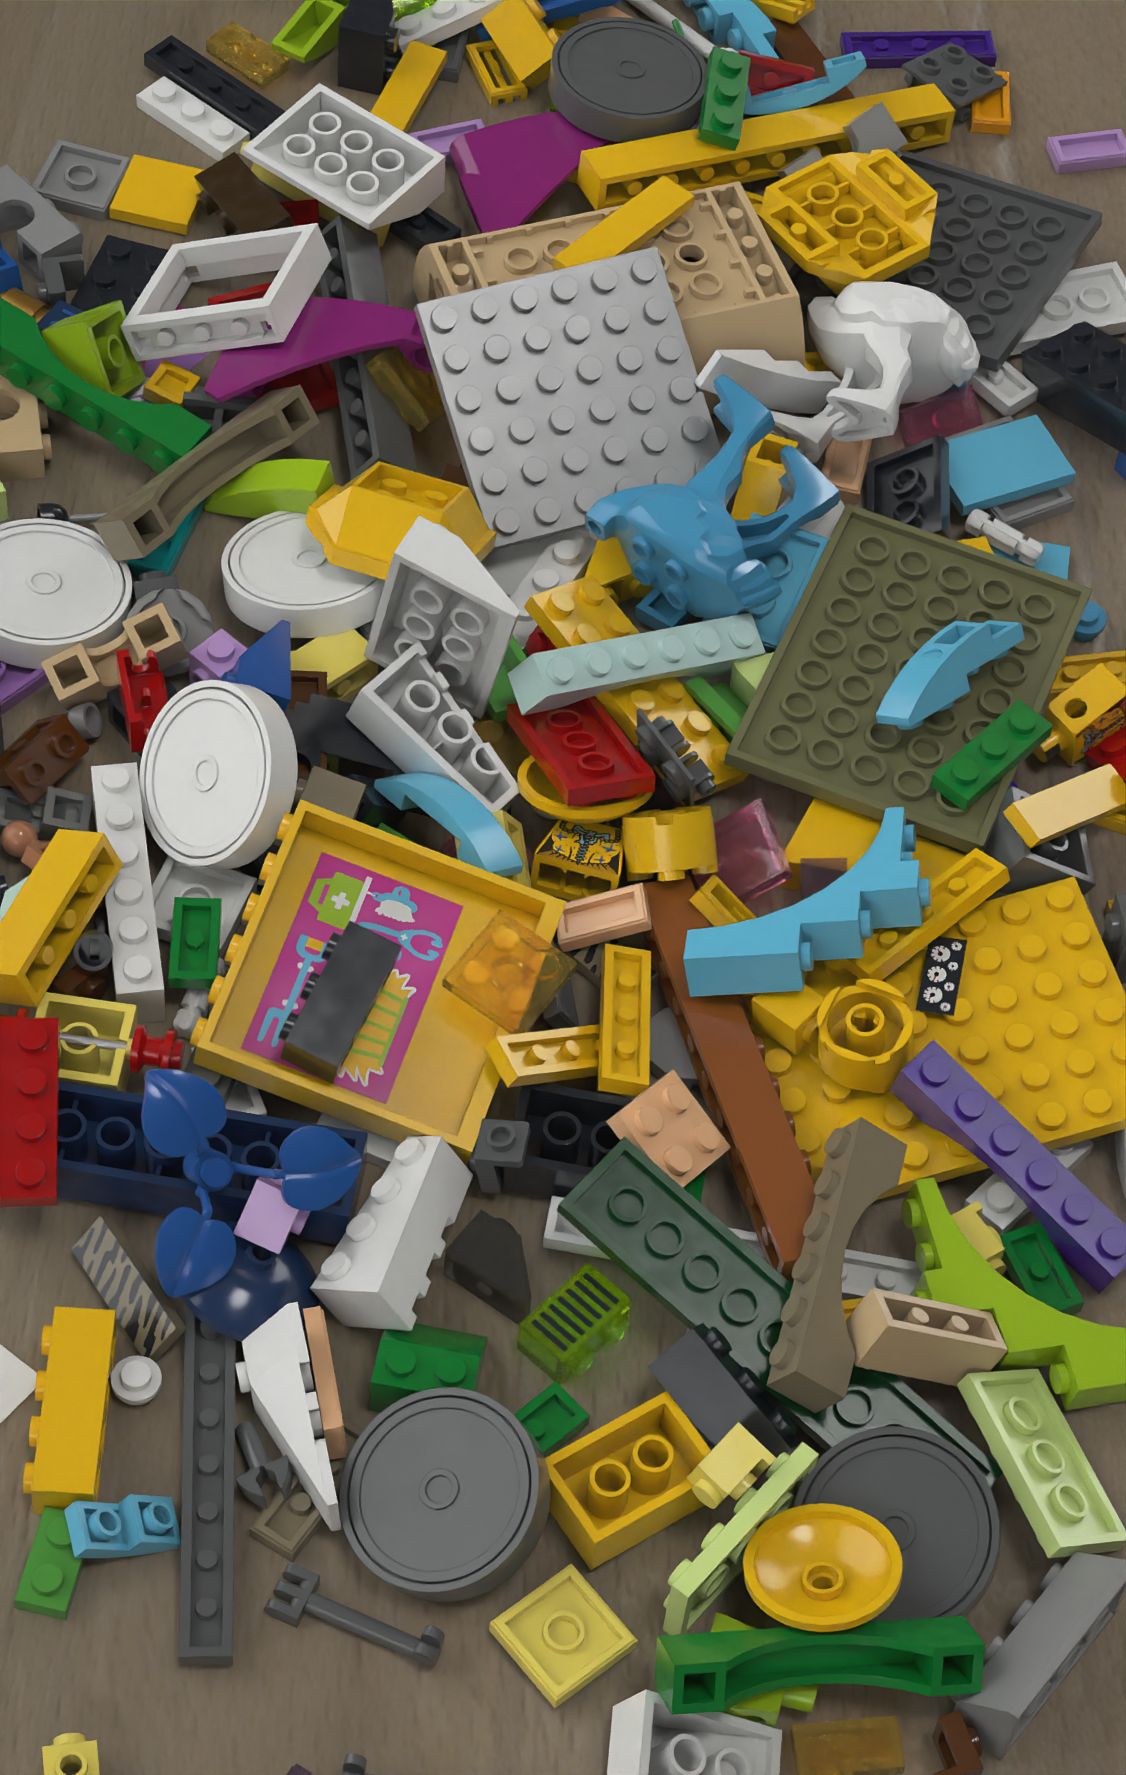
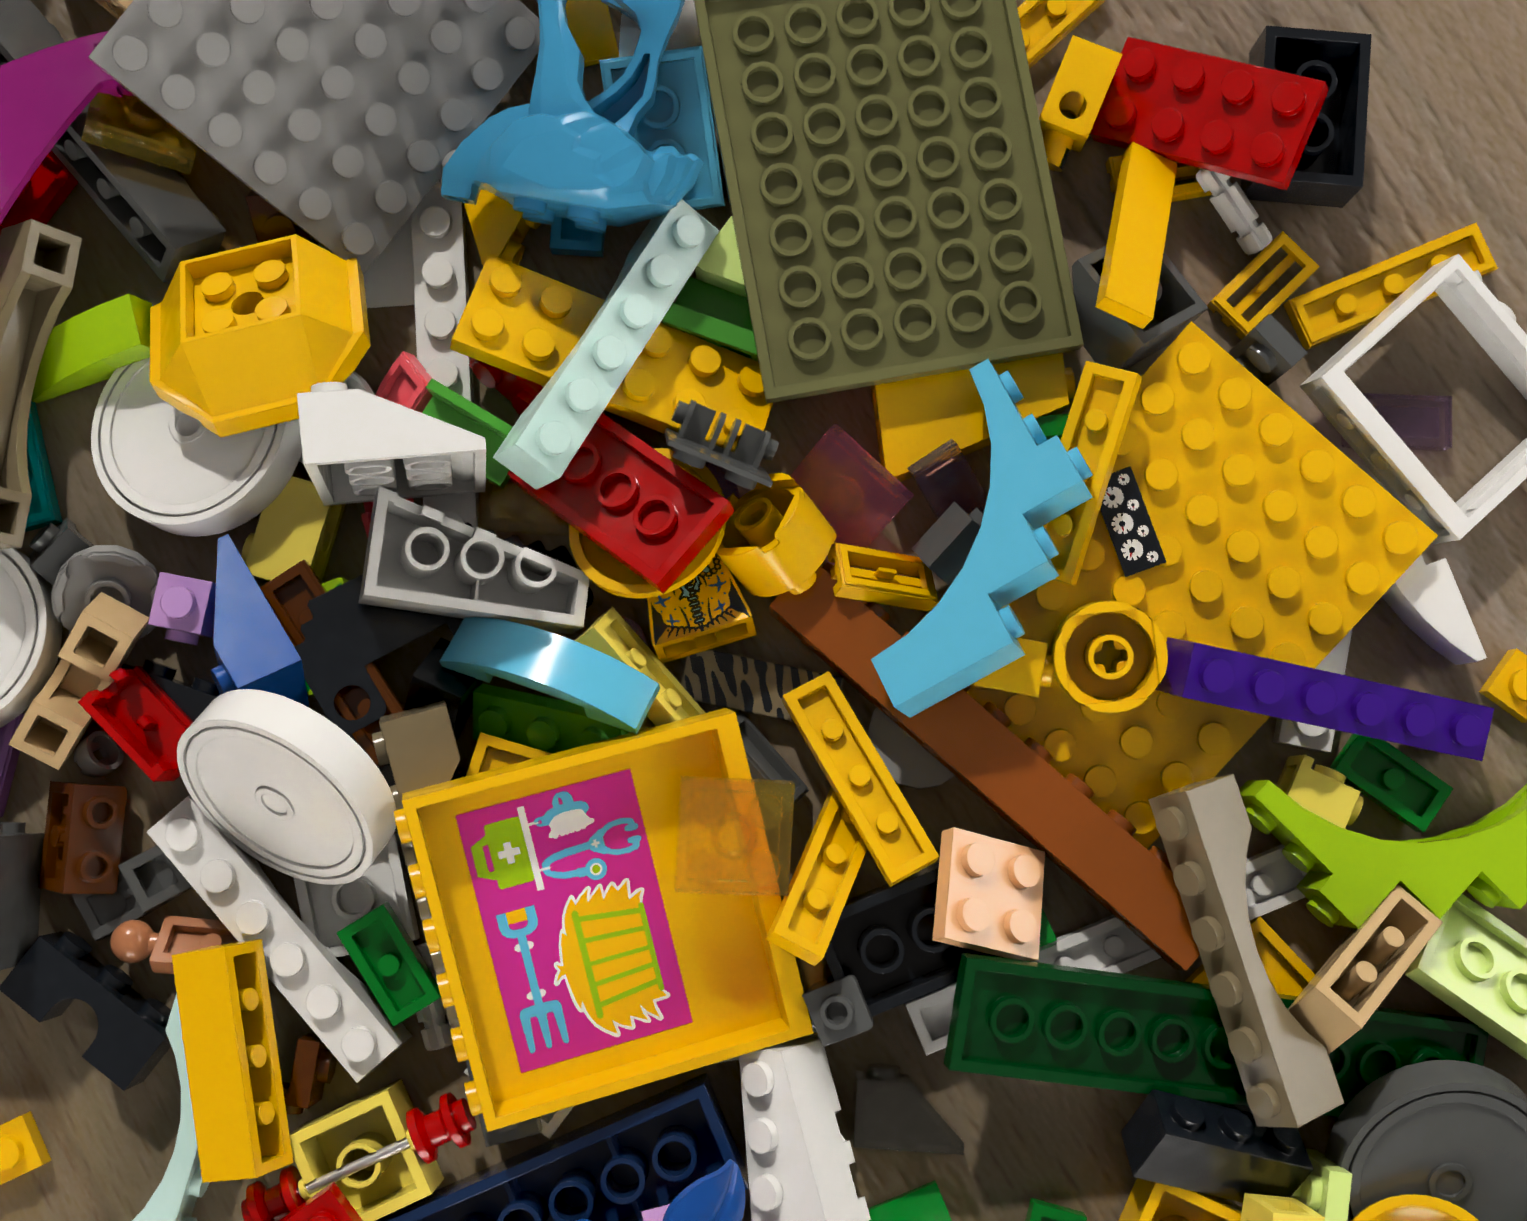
camera: 25 degrees left, 30 degrees up
(94, 943) = (302, 1051): black hinge -> none
(338, 1001) = (594, 996): black brick -> none
(574, 1325) = (1012, 1133): clear neon green brick -> none
(604, 917) = (759, 662): light nougat tile -> none
(941, 670) = (928, 161): medium azure slope -> none
(991, 755) = (1030, 227): green plate -> none

